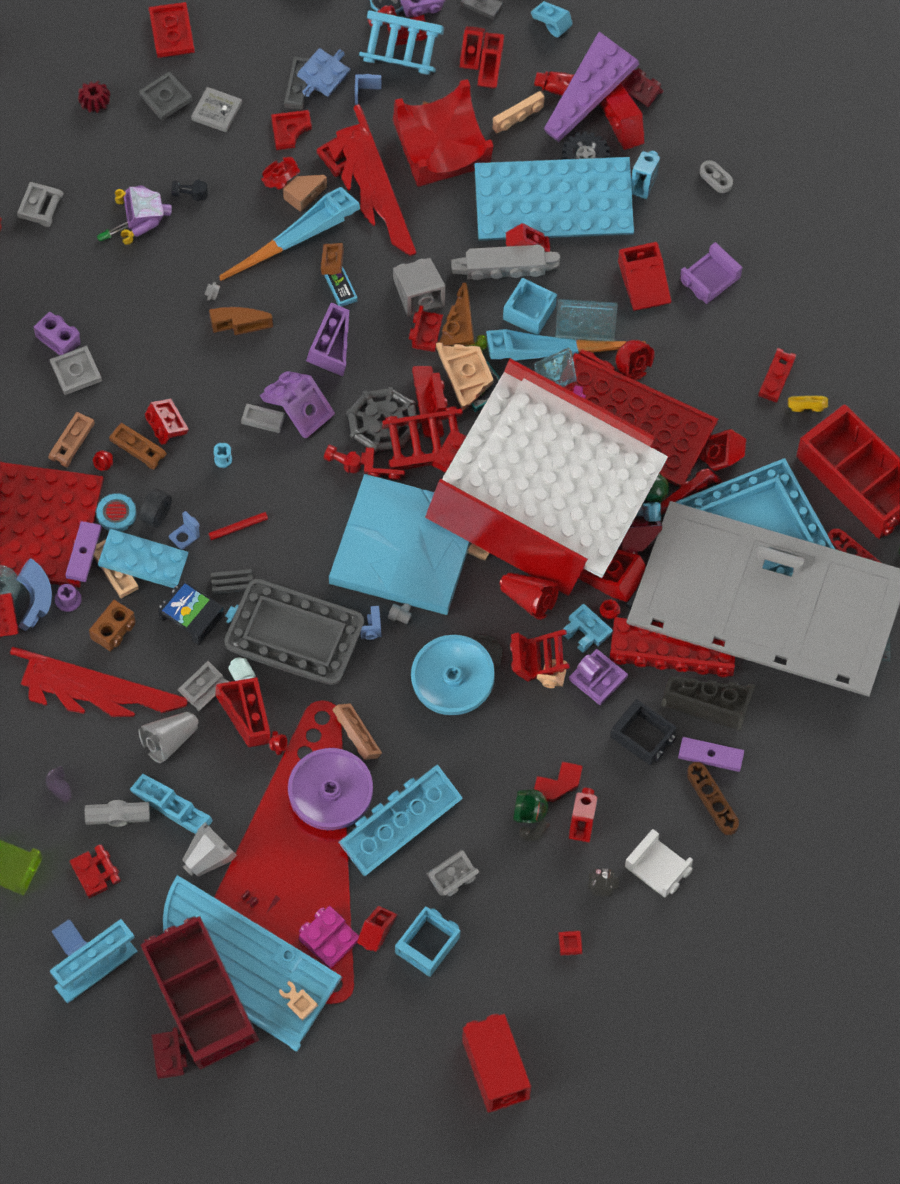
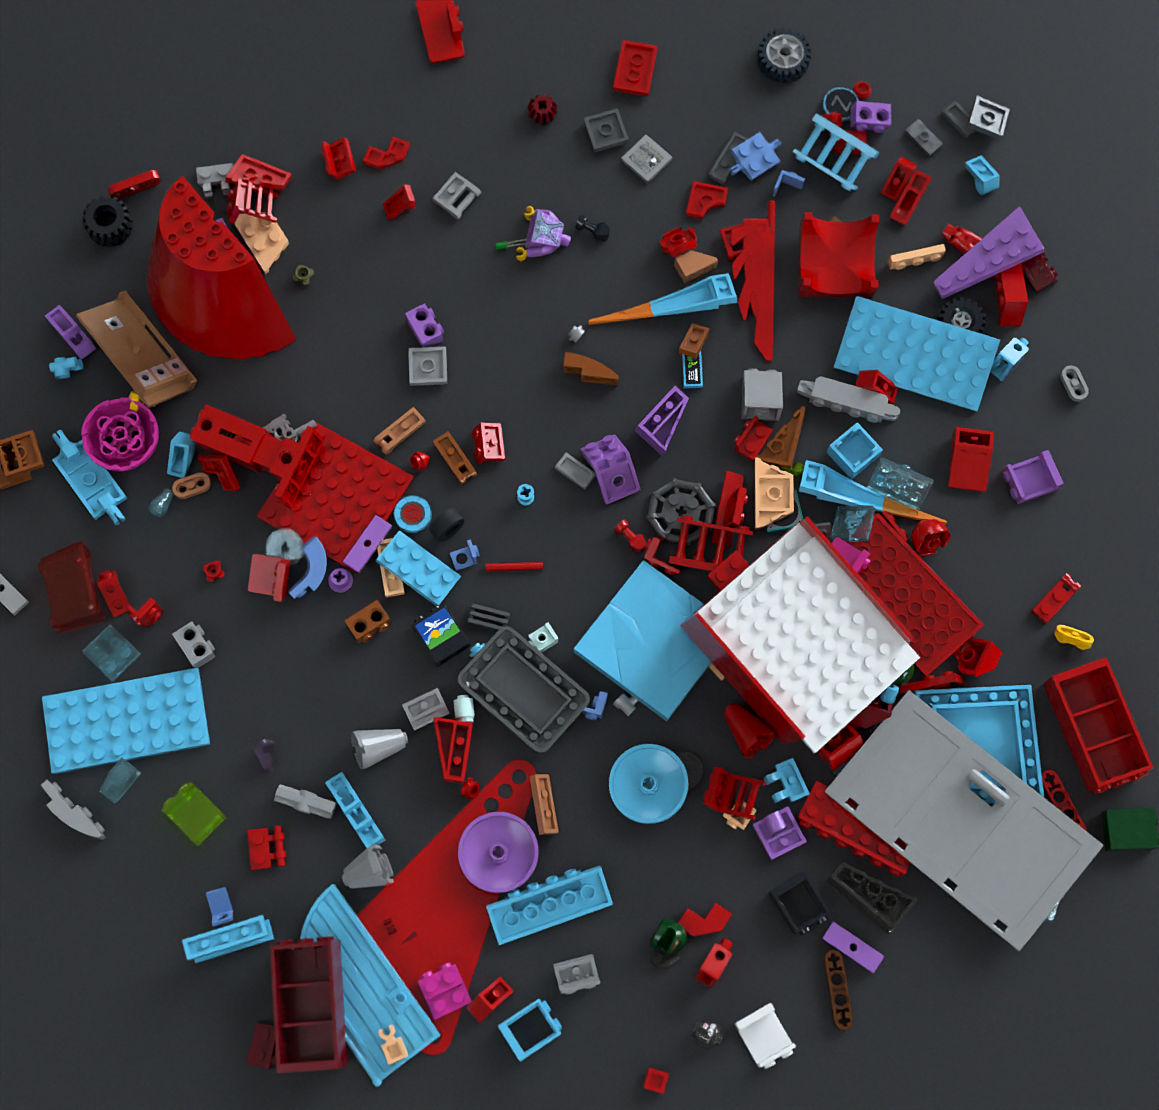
camera: 20 degrees right, 10 degrees up
(80, 683) = (321, 665): red animal -> none
(299, 574) = (550, 638): none -> light aqua brick
(609, 609) = (814, 766): red plate -> none

